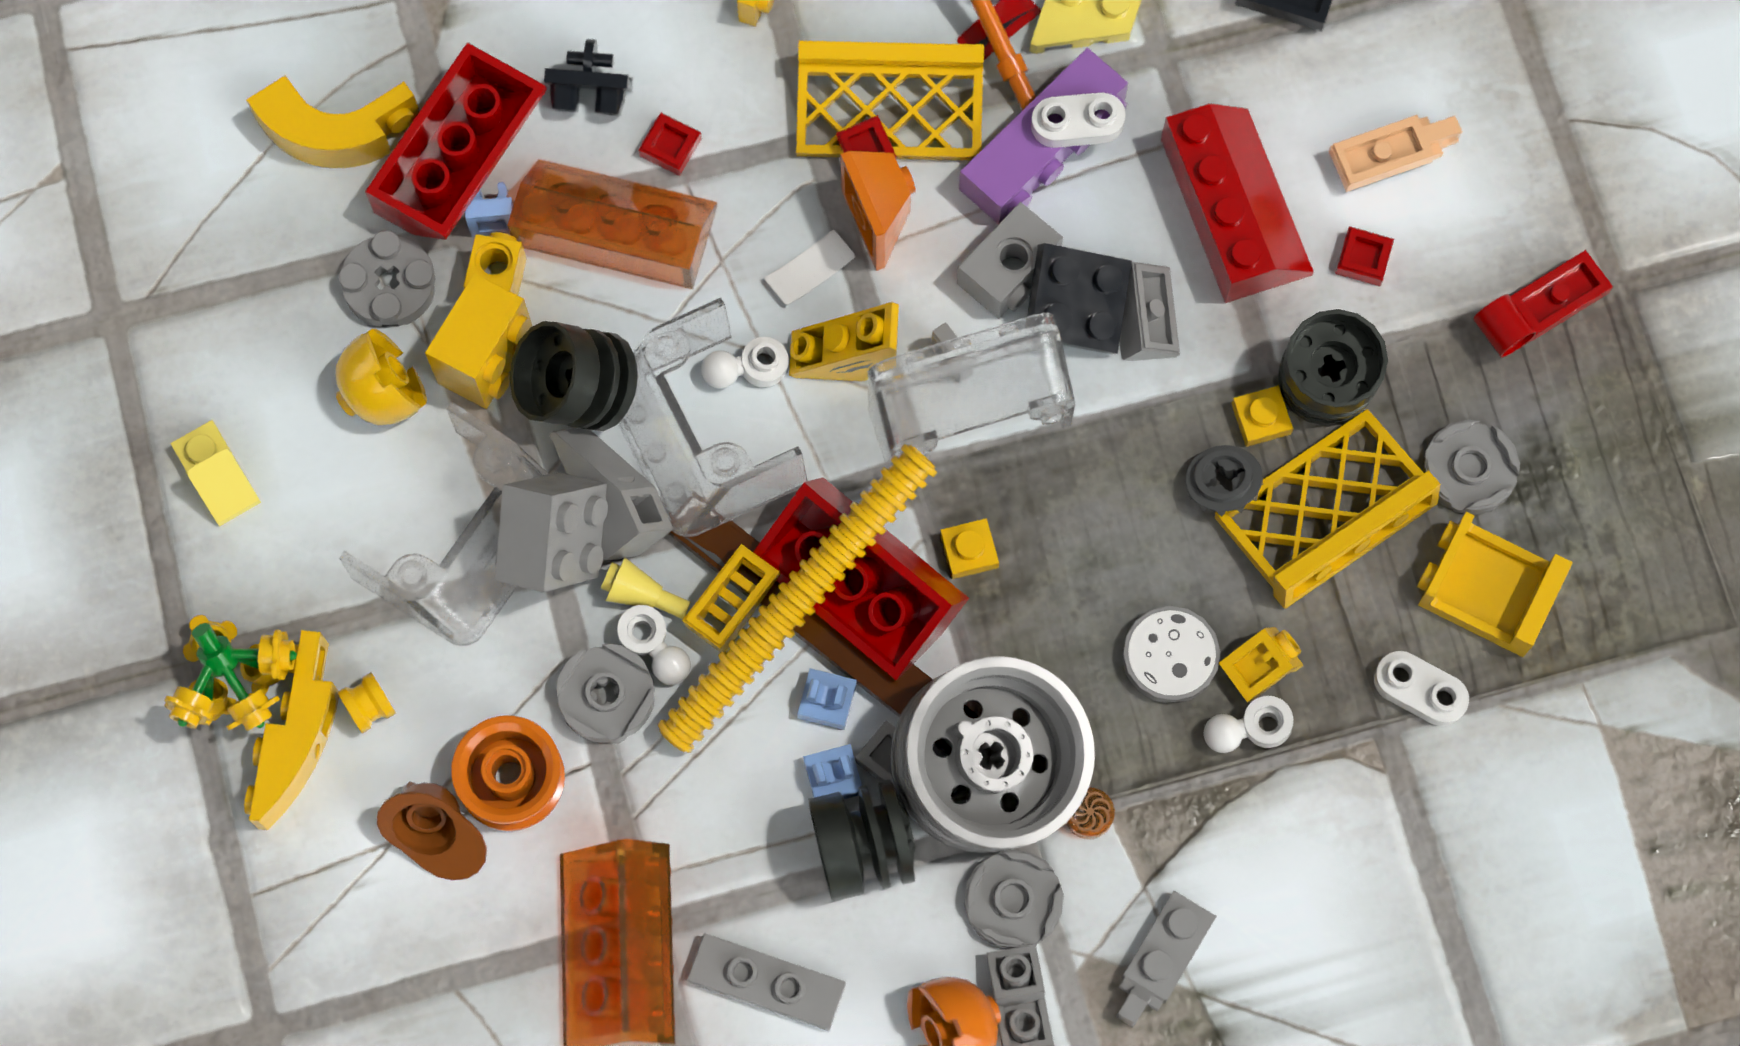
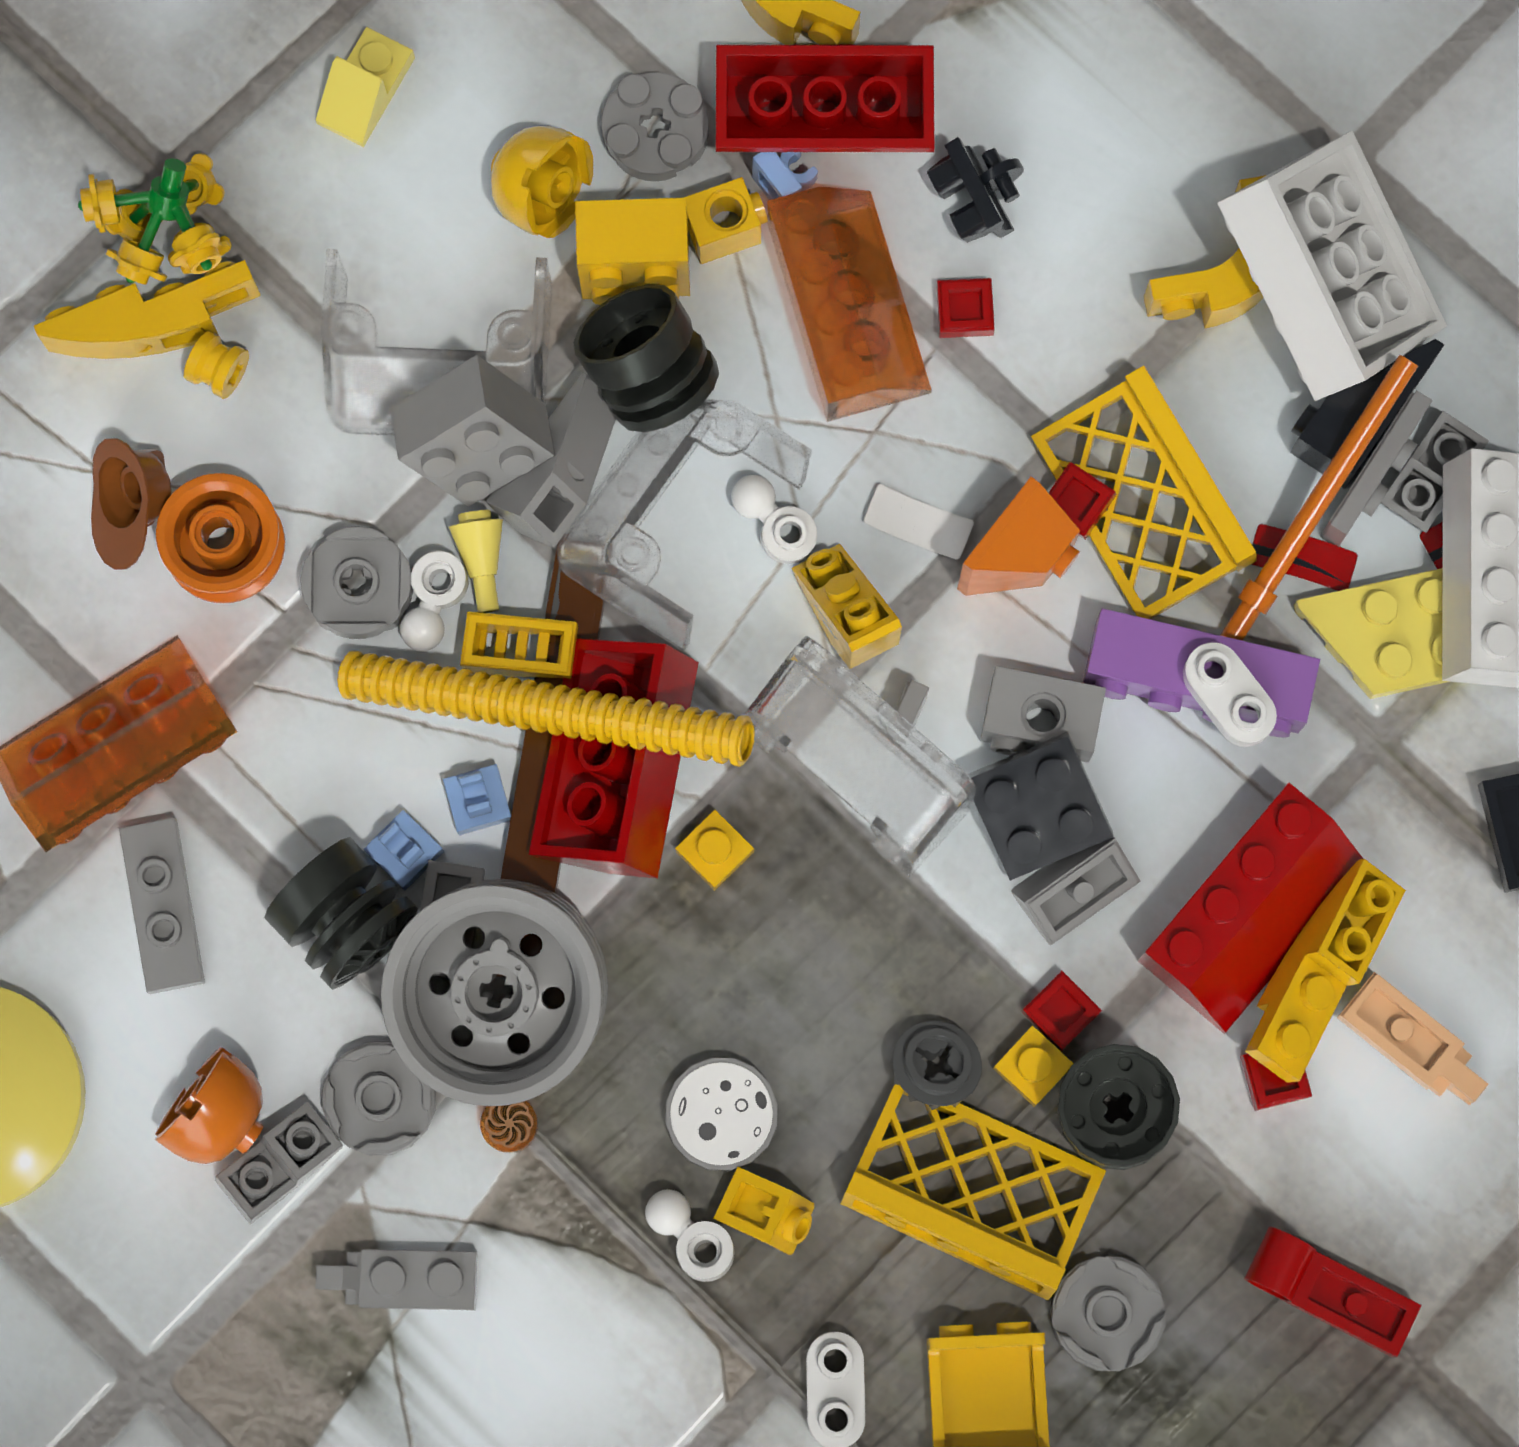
camera: 60 degrees right, 5 degrees up
(1232, 373) = (1061, 1011): none -> red tile
(1302, 173) = (1319, 966): none -> yellow slope

